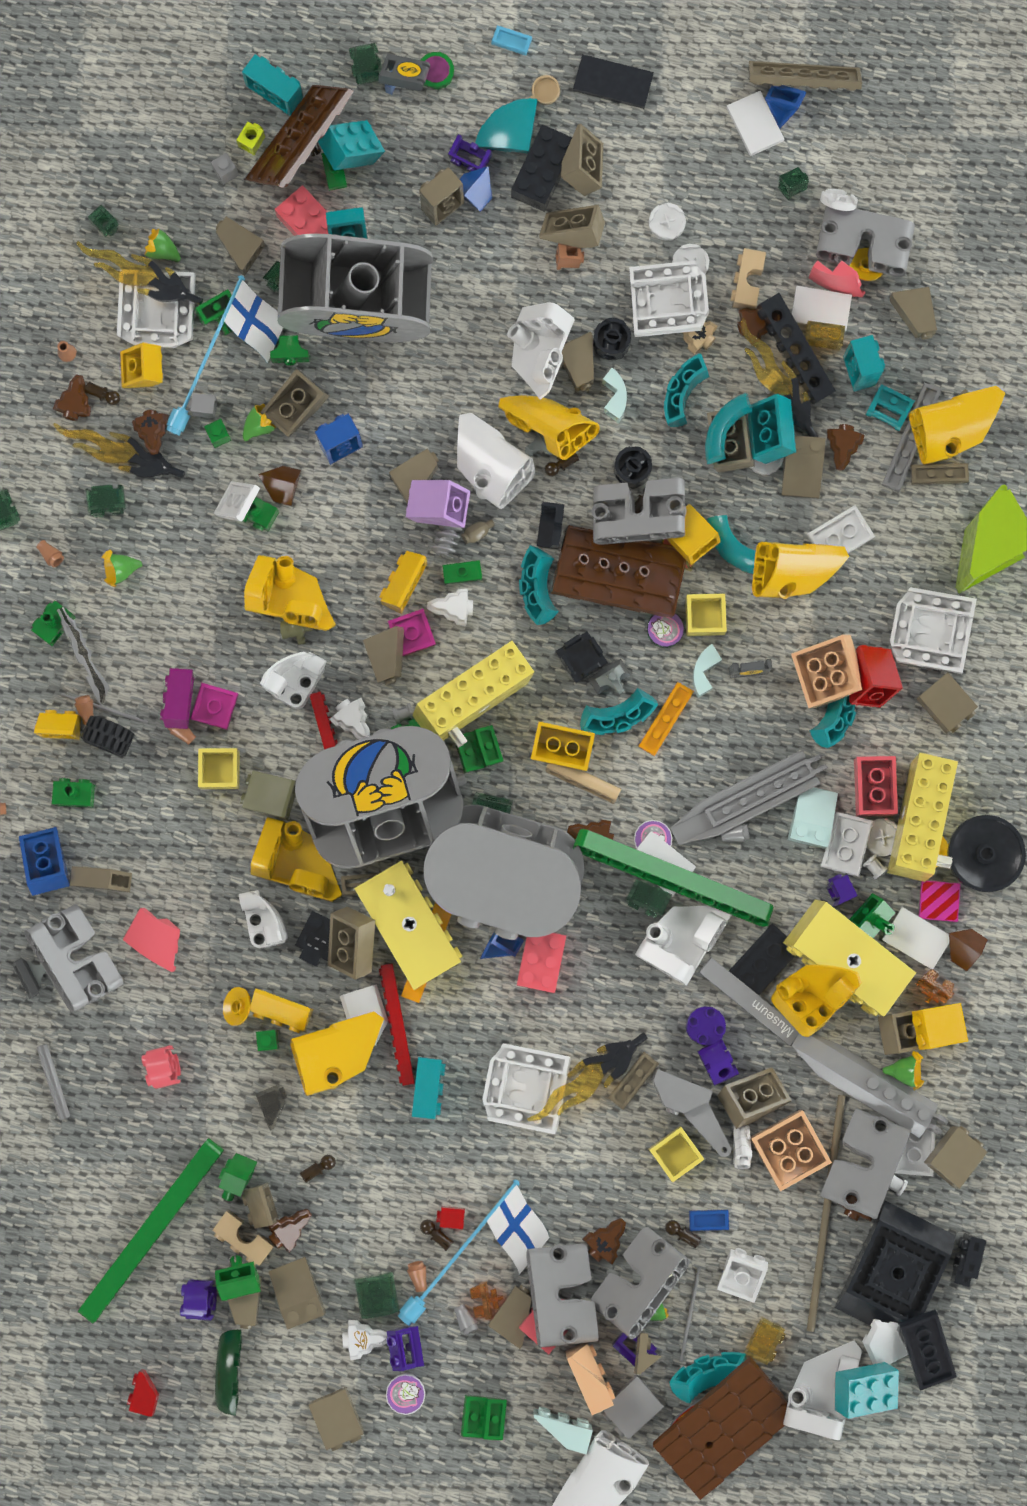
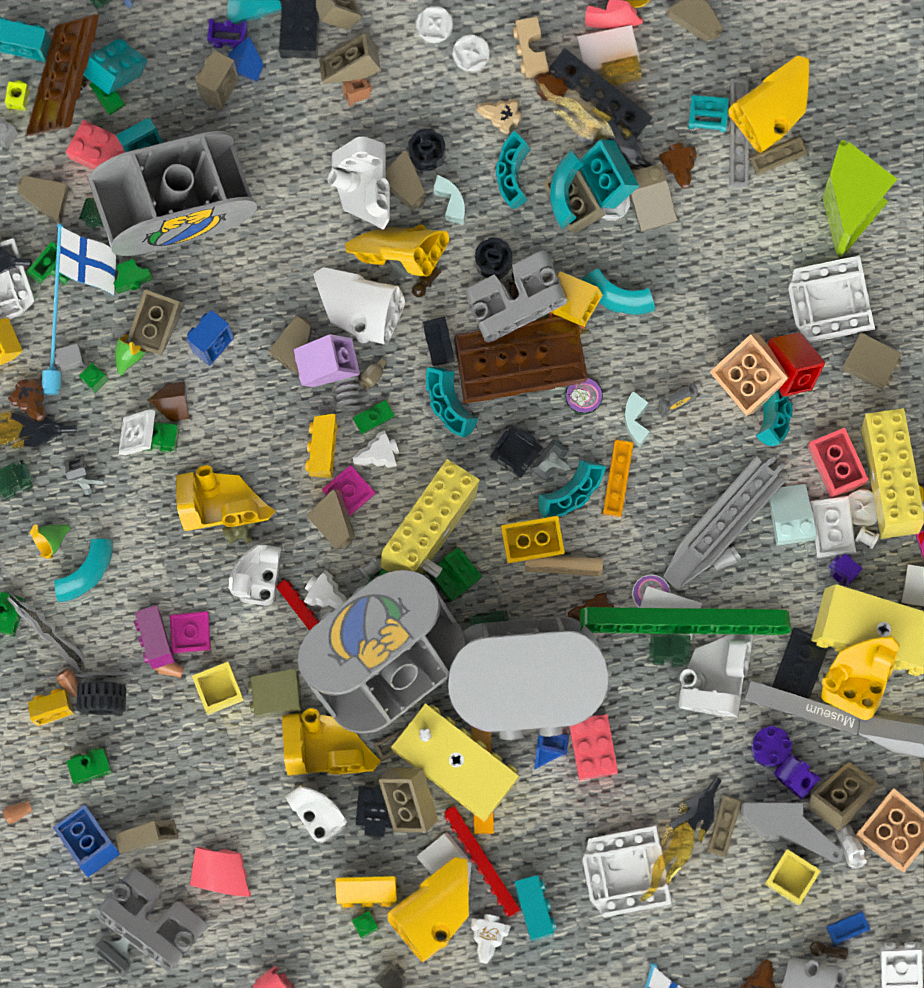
camera: 15 degrees left, 5 degrees down
(141, 615) = (88, 574): none -> teal brick
(167, 515) = (76, 471): none -> piece
(236, 1006) = (323, 904): yellow dish -> none
(376, 1095) = (488, 935): none -> white rock
(668, 298) = (464, 92): white wedge -> none
(705, 615) = (616, 367): light yellow piece -> none
(794, 569) = (680, 293): yellow panel -> none
(845, 530) = (711, 247): white tile -> none
(863, 362) = (668, 81): teal brick -> none
(874, 916) = (886, 582): green brick -> none

